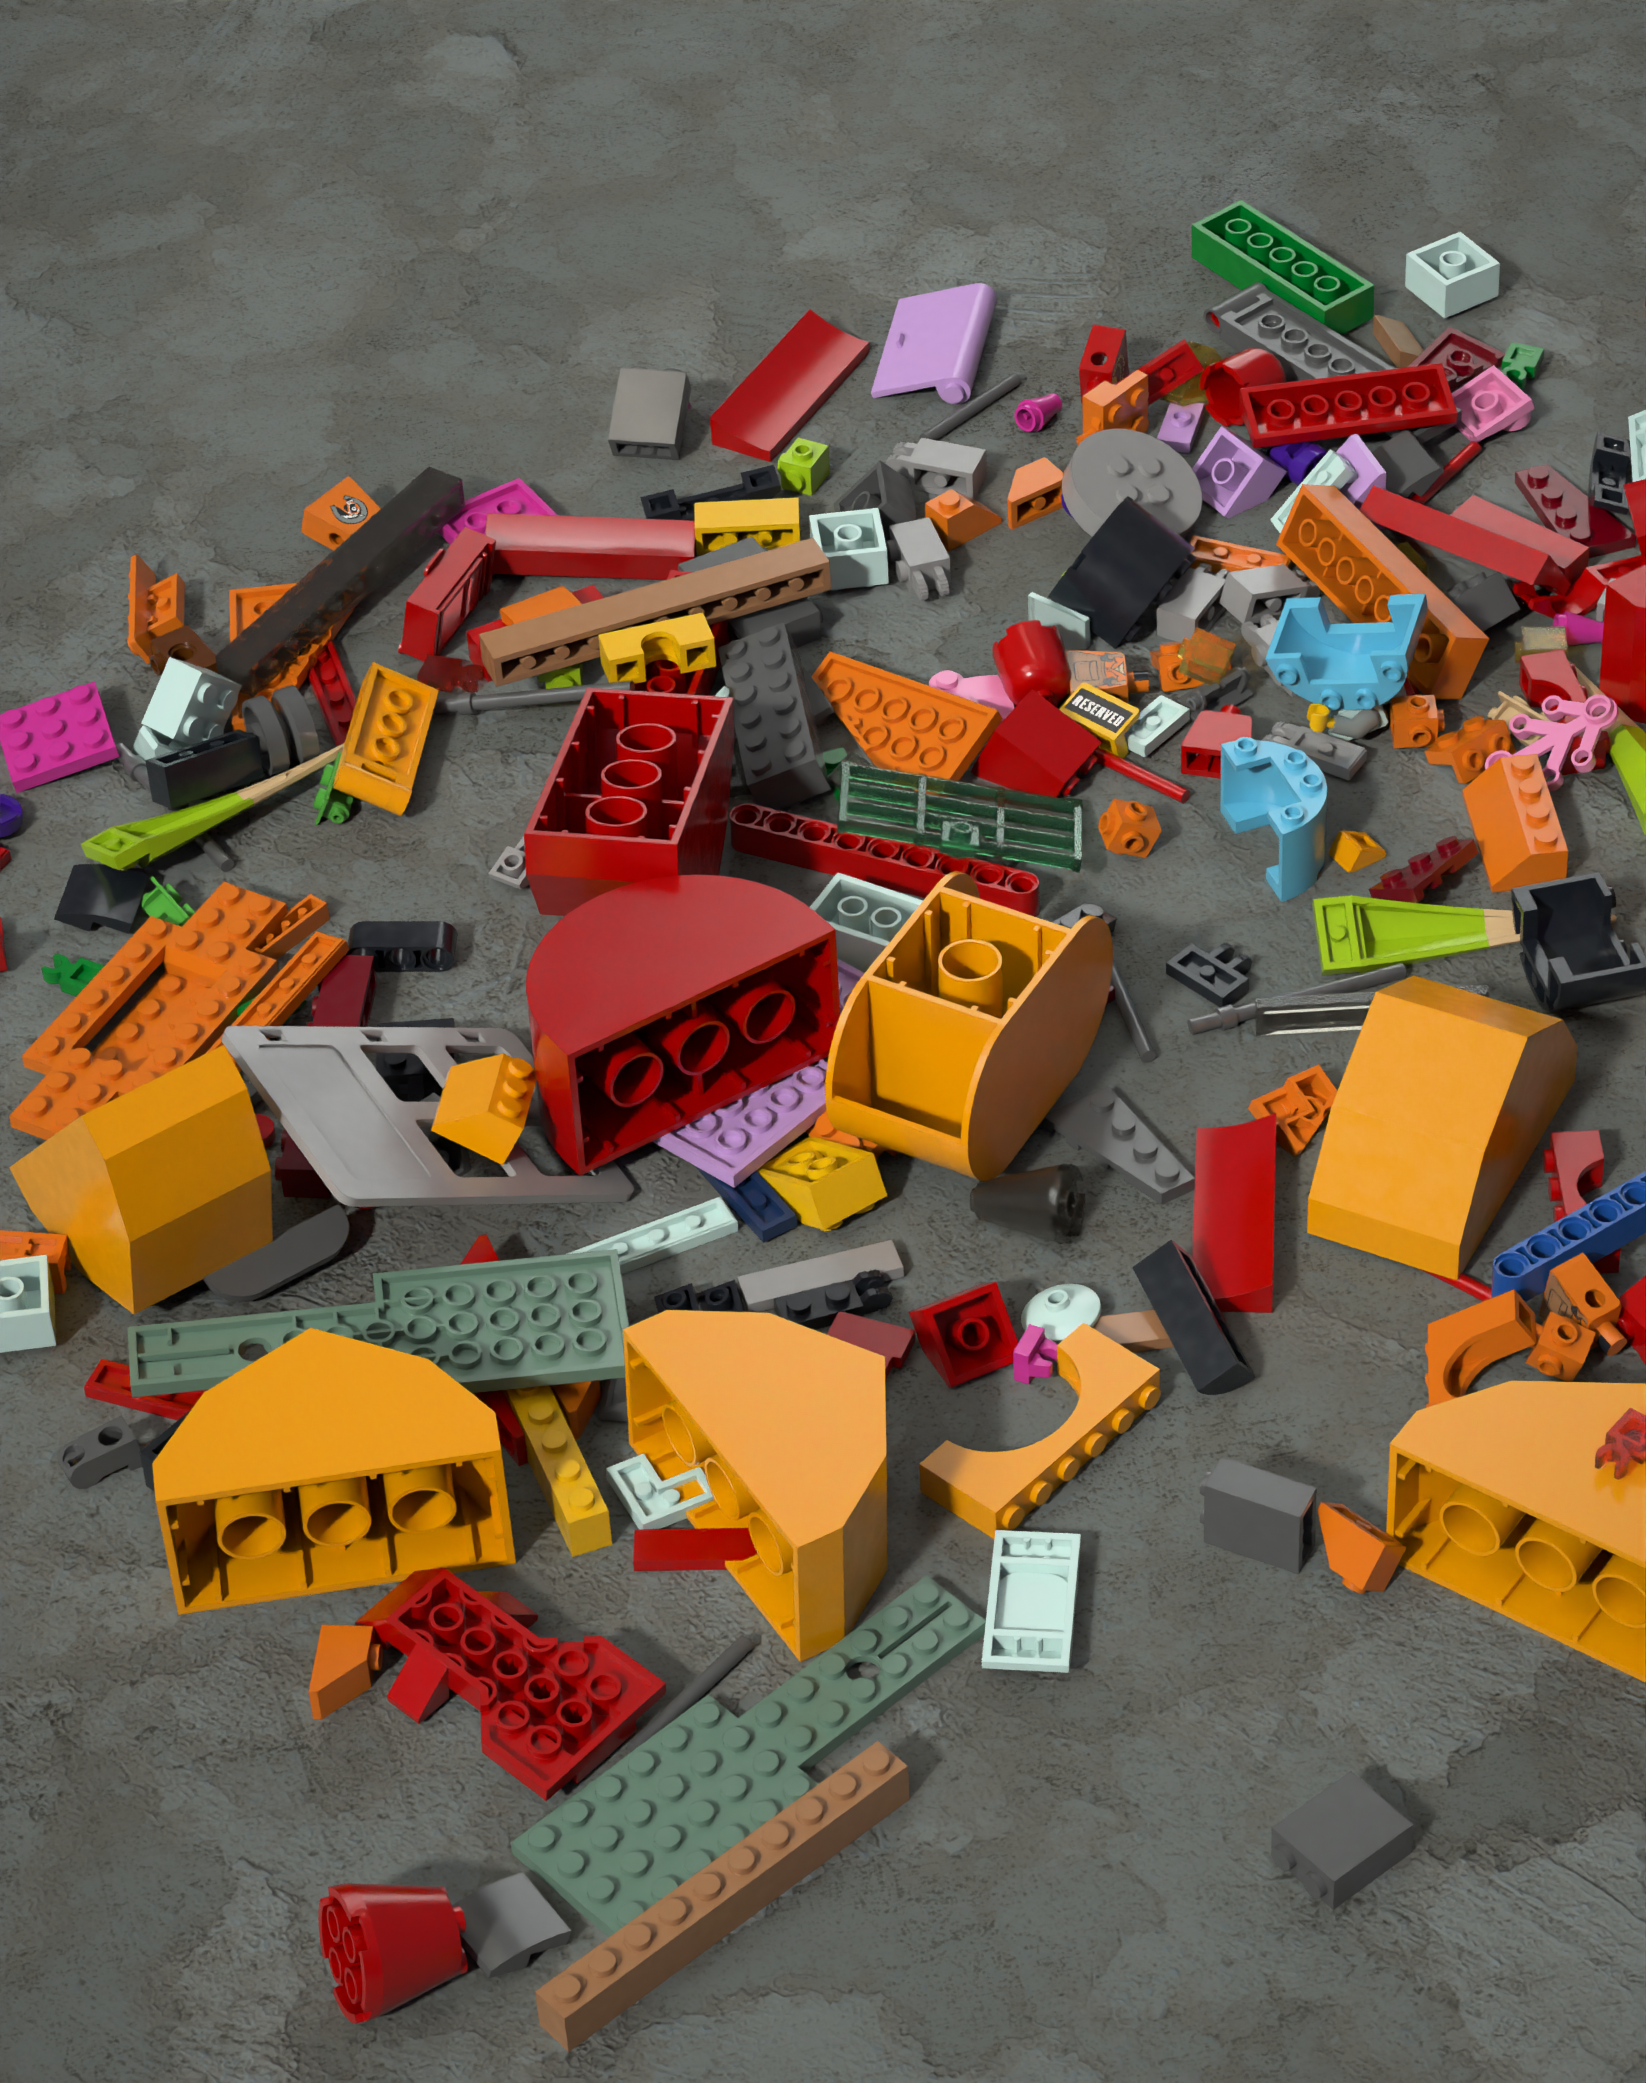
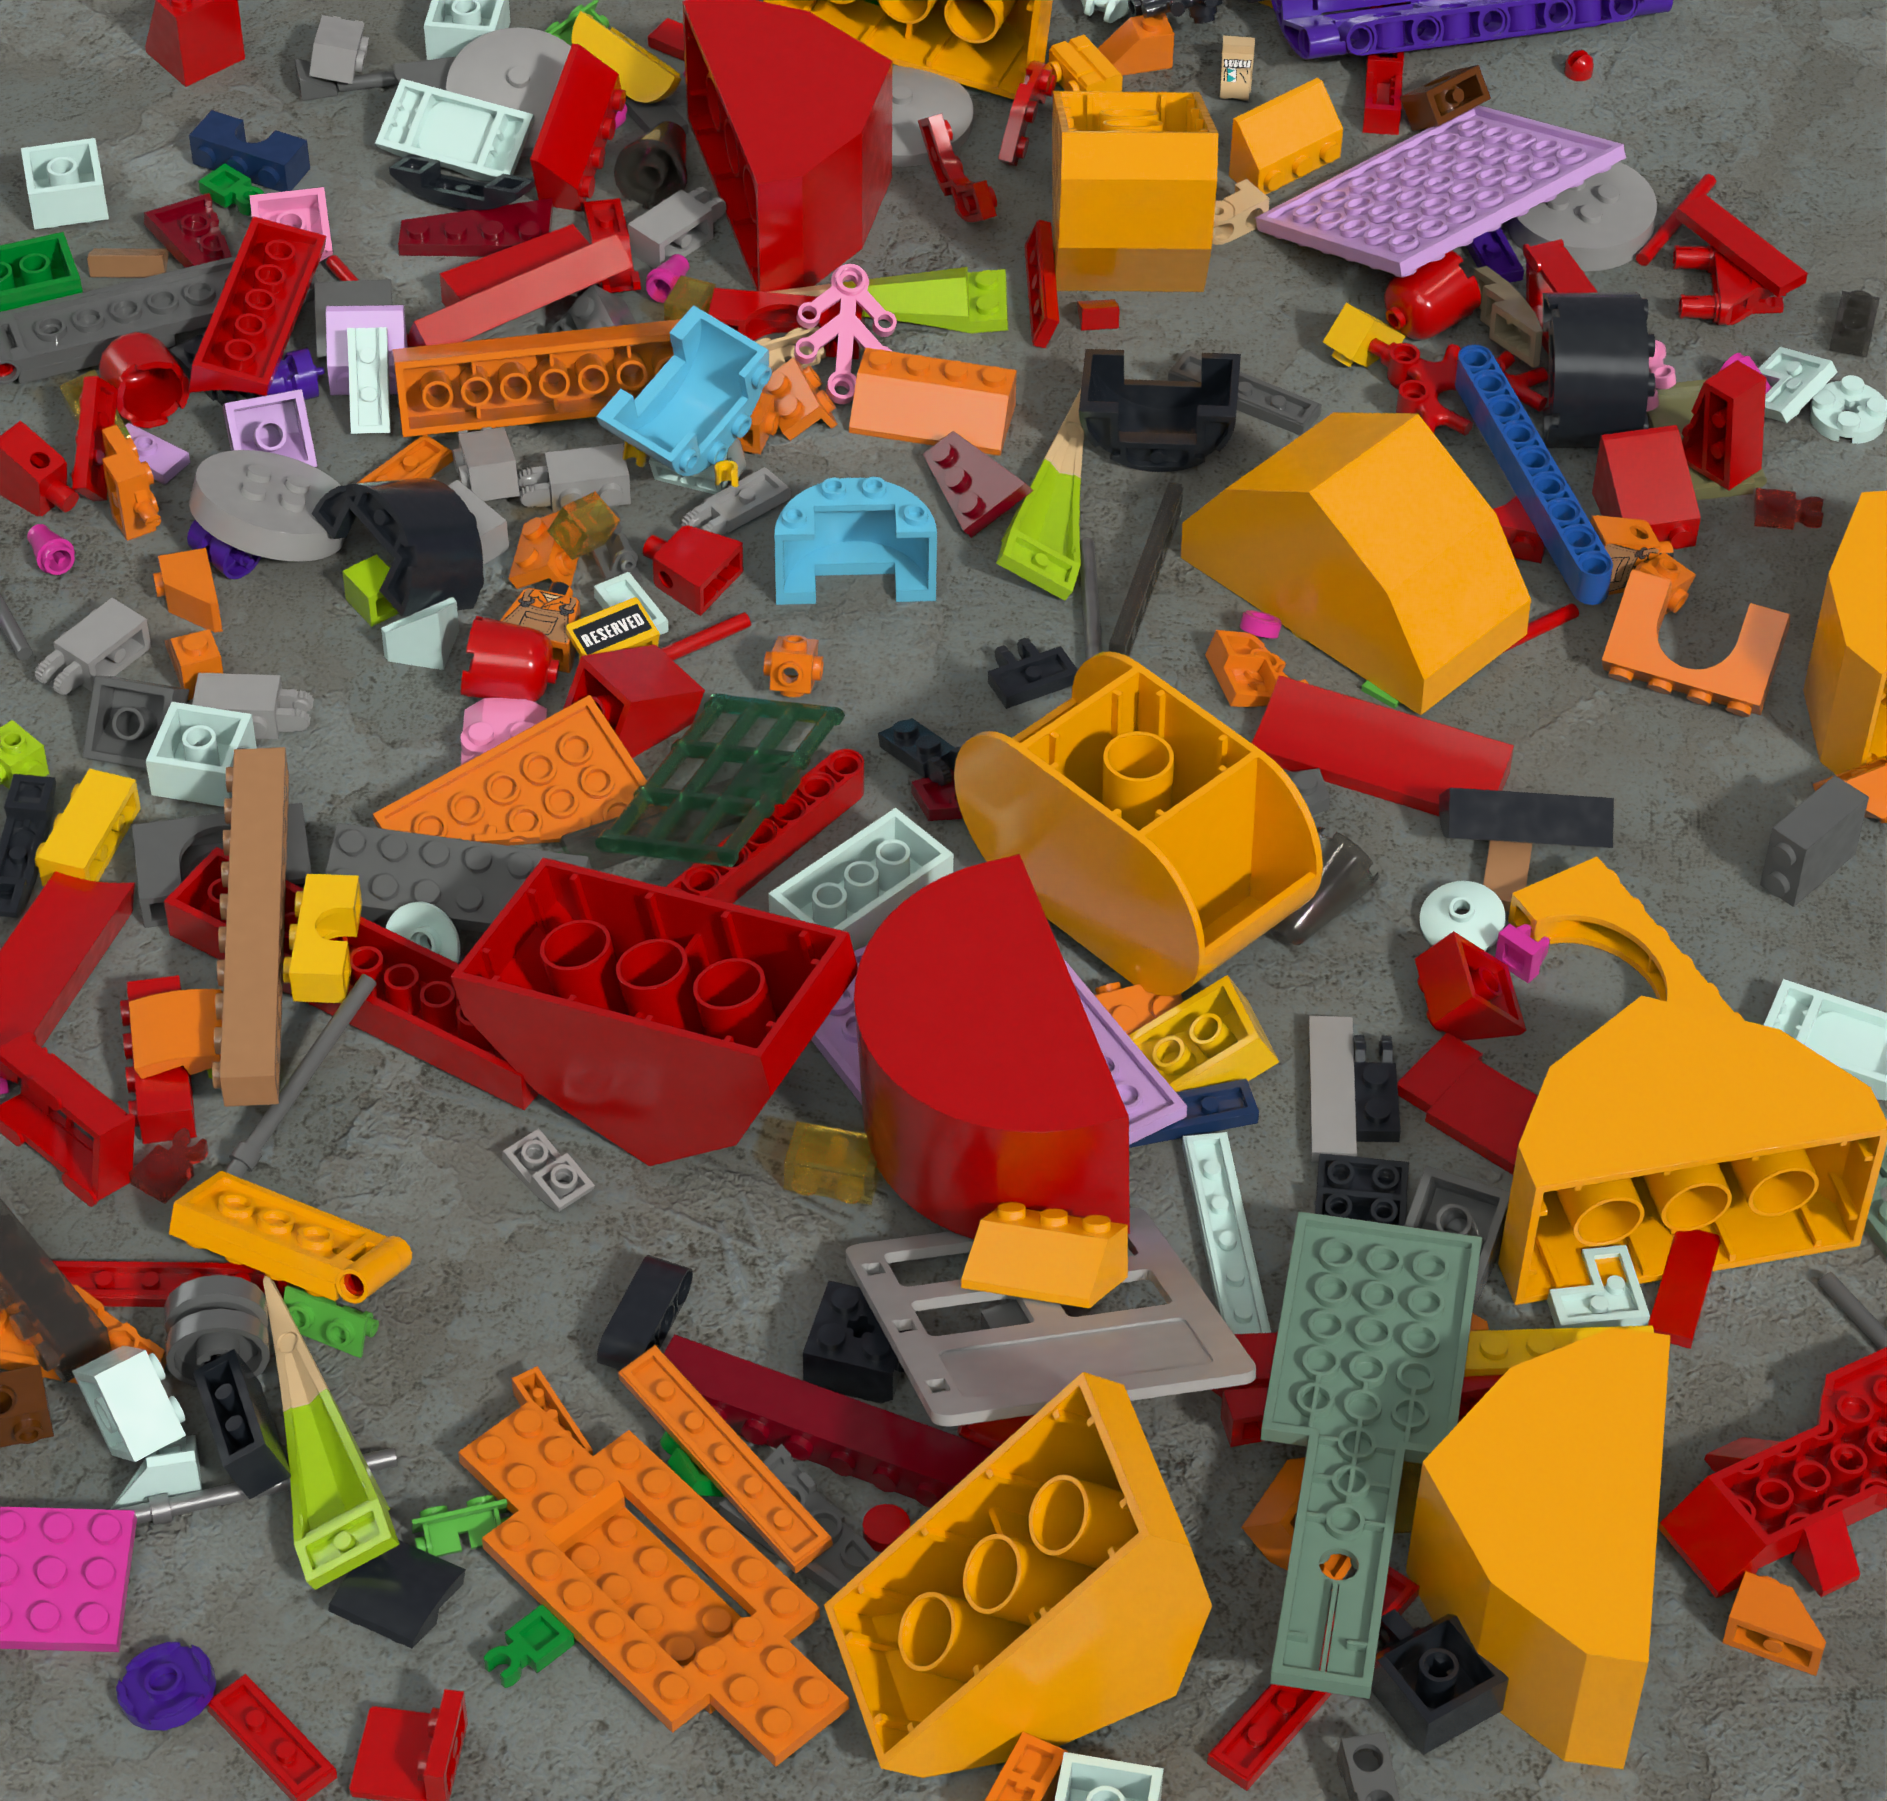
camera: 75 degrees left, 5 degrees up
(1568, 357) = (271, 163): none -> dark blue arch

